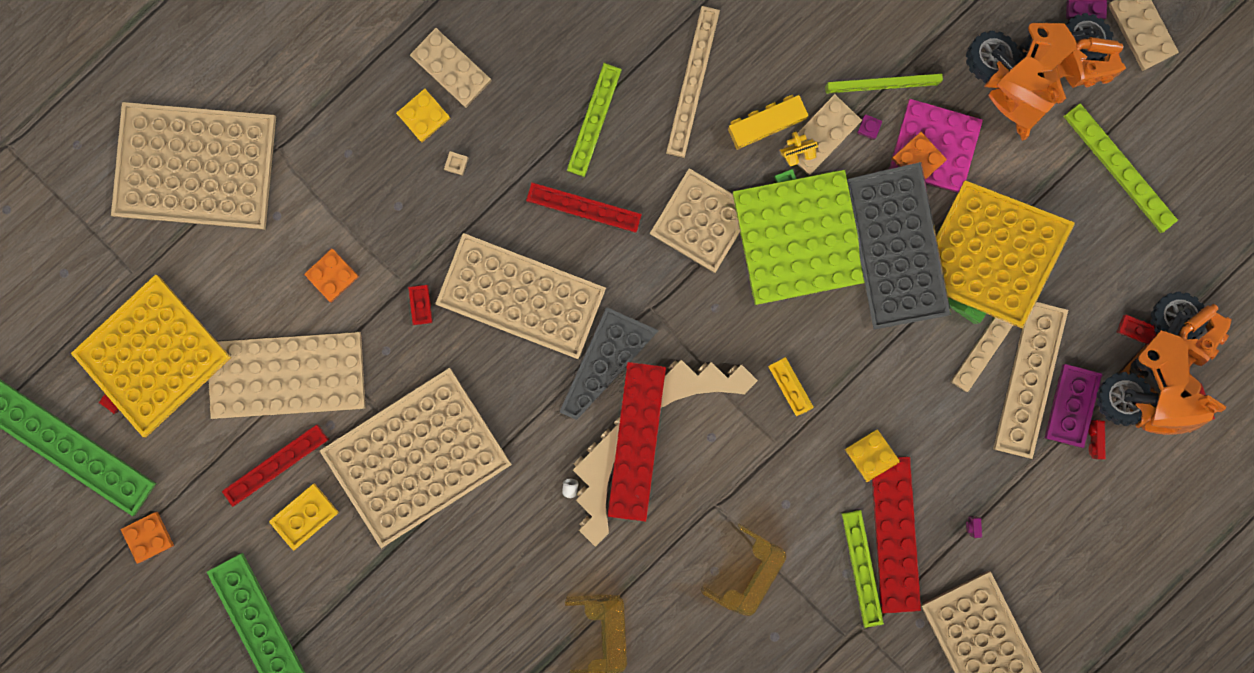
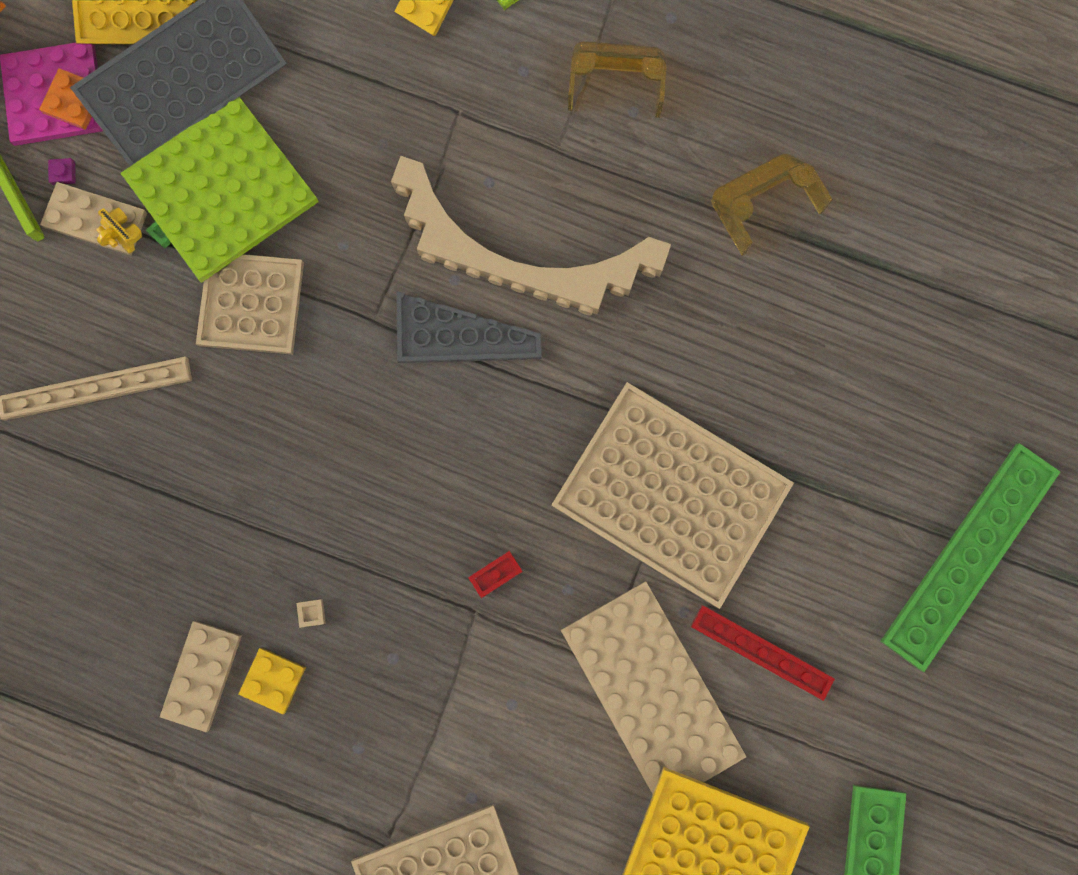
camera: 110 degrees left, 5 degrees down
(147, 537) = (920, 763): orange plate -> none
(304, 517) = (803, 589): yellow plate -> none
(331, 275) = (510, 697): orange plate -> none
(520, 296) = (430, 465): tan plate -> none
(570, 490) = (623, 304): white piece -> none
(584, 207) = (295, 441): red plate -> none
(594, 120) = (188, 479): lime tile -> none
(636, 441) = (531, 253): red plate -> none
(767, 122) = (104, 282): yellow brick -> none
(791, 386) = (391, 121): yellow plate -> none

